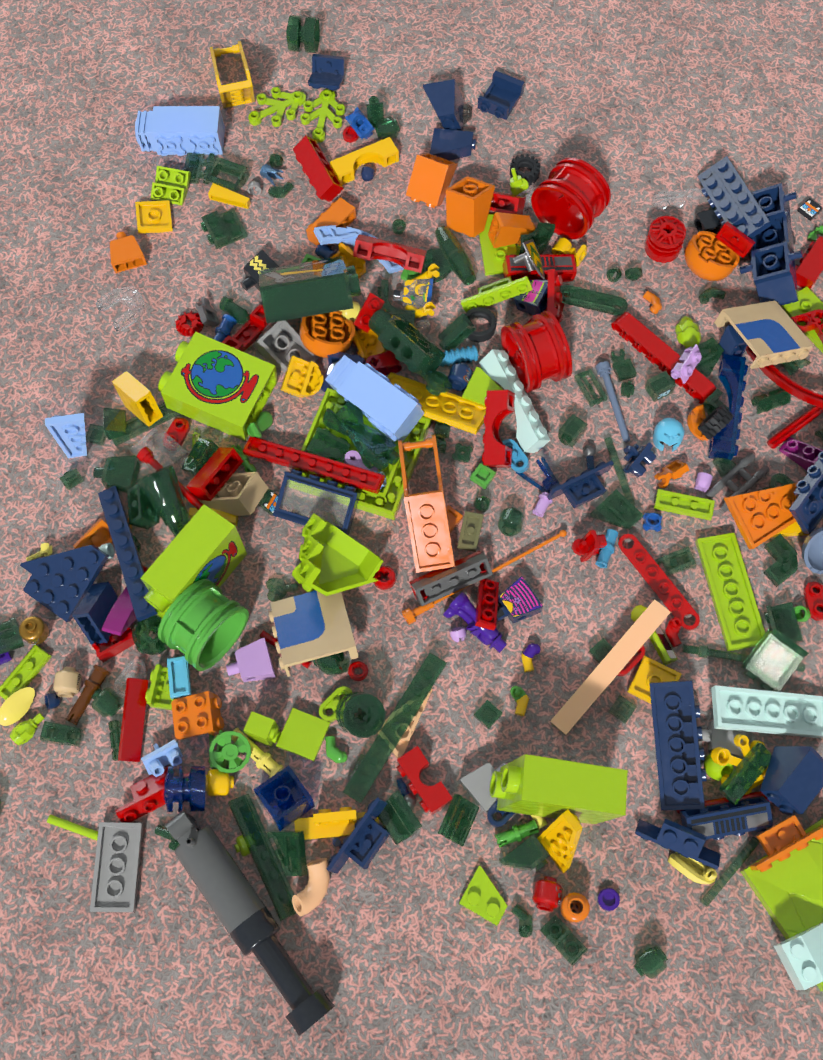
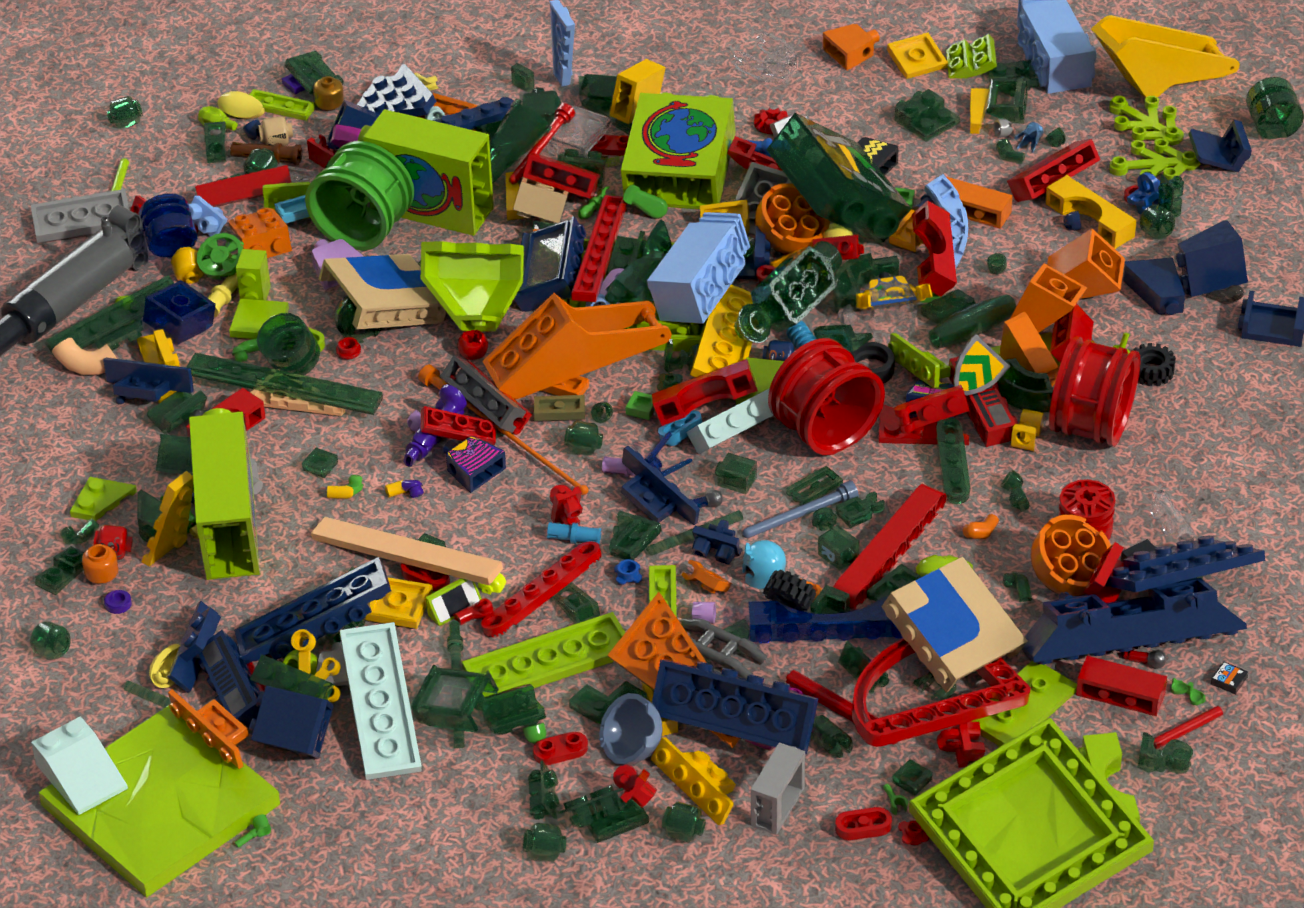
camera: 75 degrees right, 25 degrees down
(689, 360) = (874, 555): lavender hinge -> none

